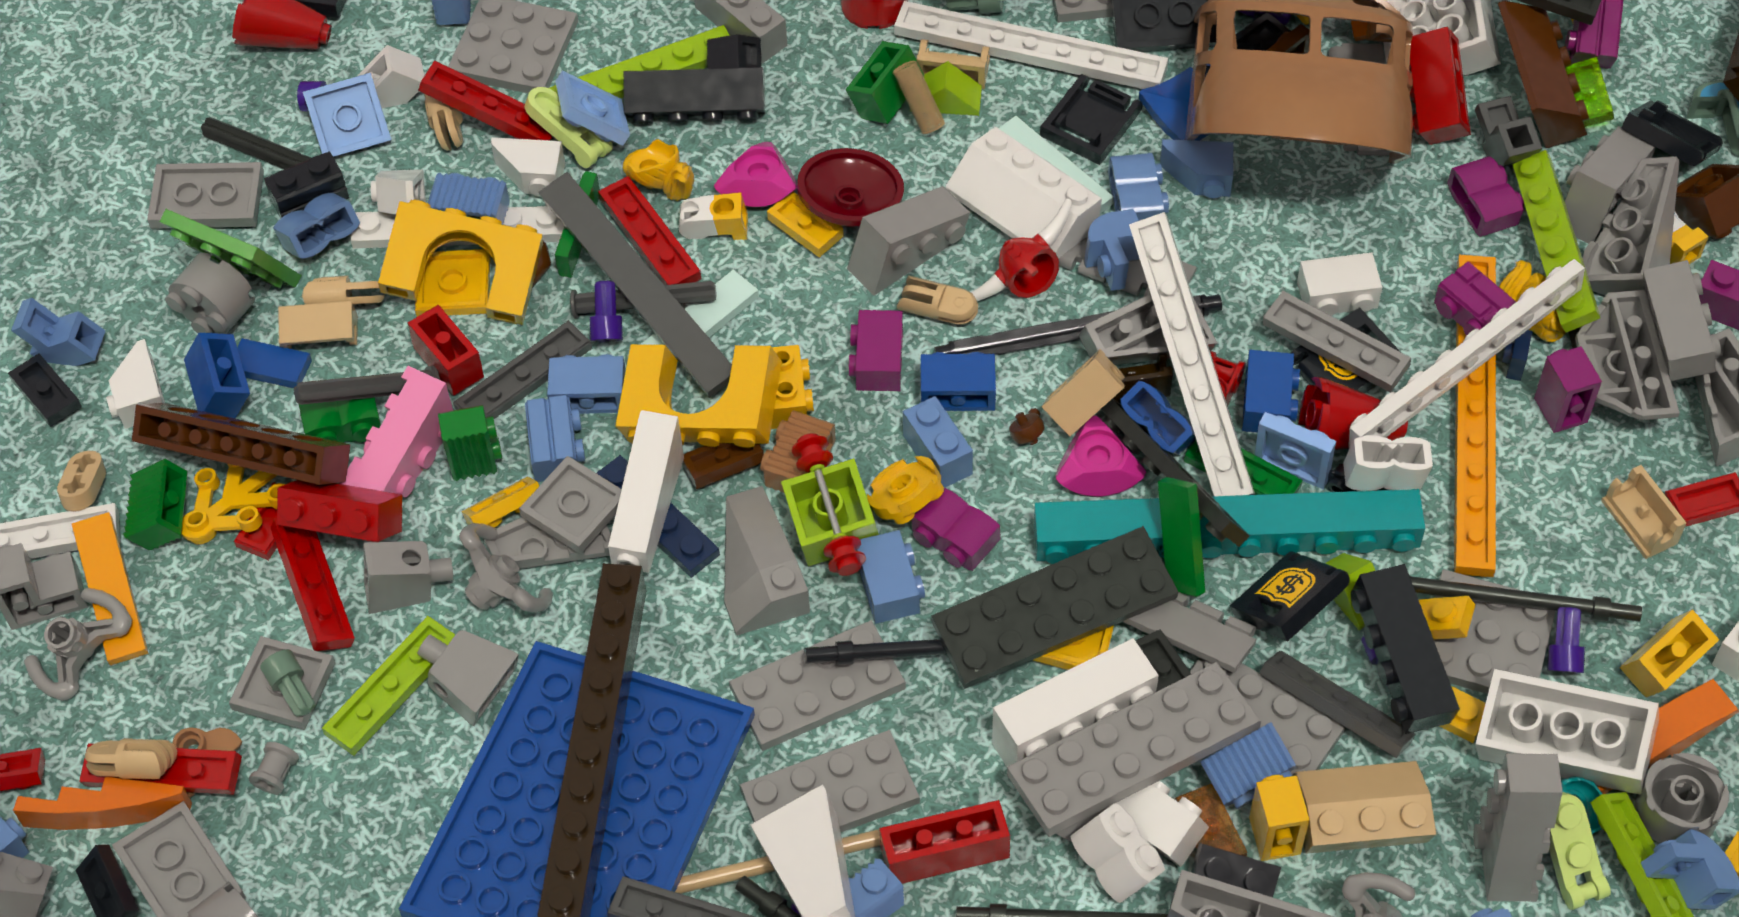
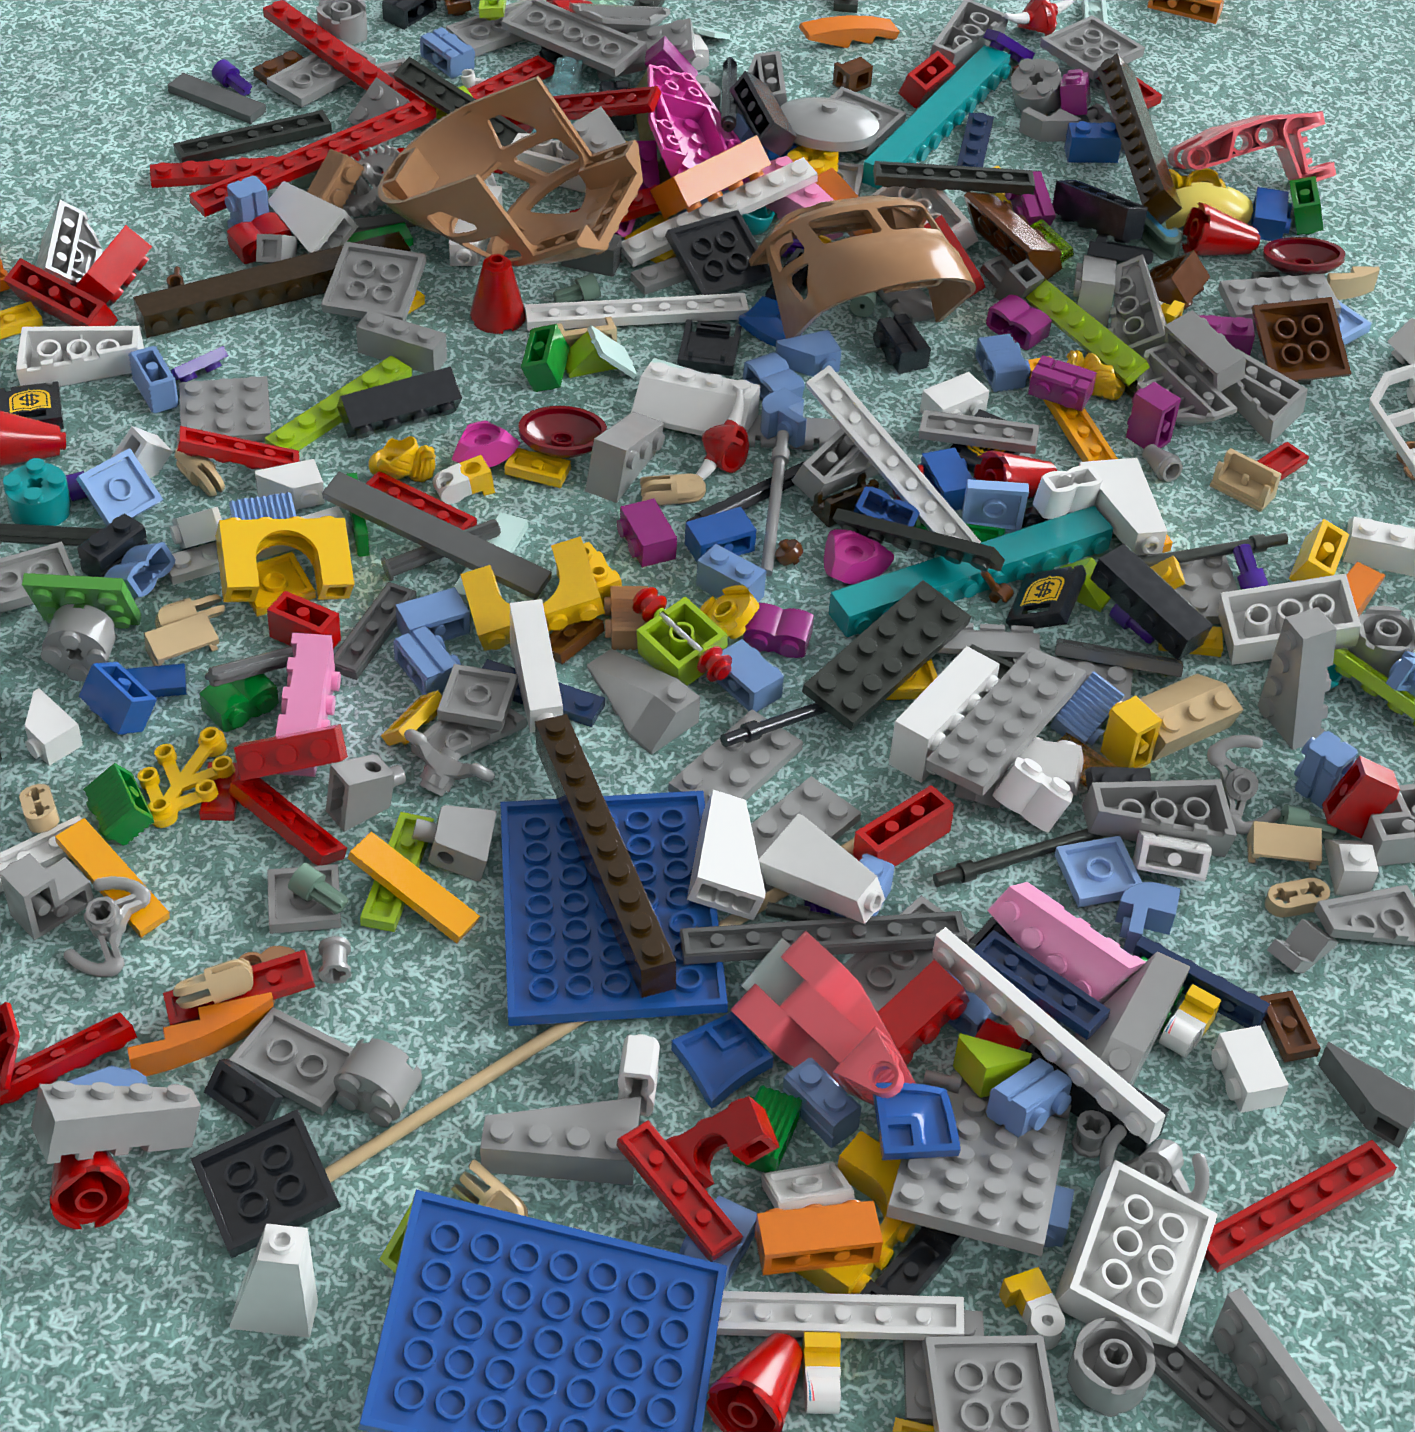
camera: 30 degrees left, 10 degrees down
(241, 443) = (173, 732): reddish brown brick -> none
(264, 96) = (37, 494): none -> teal brick
(390, 714) = (413, 887): none -> light orange tile
(470, 442) = (365, 680): green brick -> none
(545, 109) = (306, 447): yellowish green plate -> none
(592, 108) = (325, 431): light blue plate -> none
(605, 324) = (422, 572): dark purple piece -> none
(716, 811) = (726, 859): none -> white slope
(734, 52) = (415, 363): black brick -> none
(908, 82) = (577, 359): tan piece -> none
(966, 96) = (612, 351): none -> light aqua piece
(1077, 302) = (779, 459): none -> light grey bar
(1084, 393) = (822, 512): tan hinge -> none
(1182, 535) = (954, 572): green tile -> none
(1246, 566) = (1001, 591): none -> reddish brown hand
(1320, 184) = (902, 344): none -> black brick
(1430, 247) = (1002, 362): none -> medium blue brick
(1459, 500) = (1129, 505): none -> white slope
(1474, 351) = (1084, 404): white plate -> none
(1516, 356) = (1102, 410): dark blue plate -> none
(1553, 453) = (1163, 463): none -> light grey cone
(1575, 853) = (1343, 697): yellowish green plate -> none
(1673, 68) = (1099, 210): none -> black brick

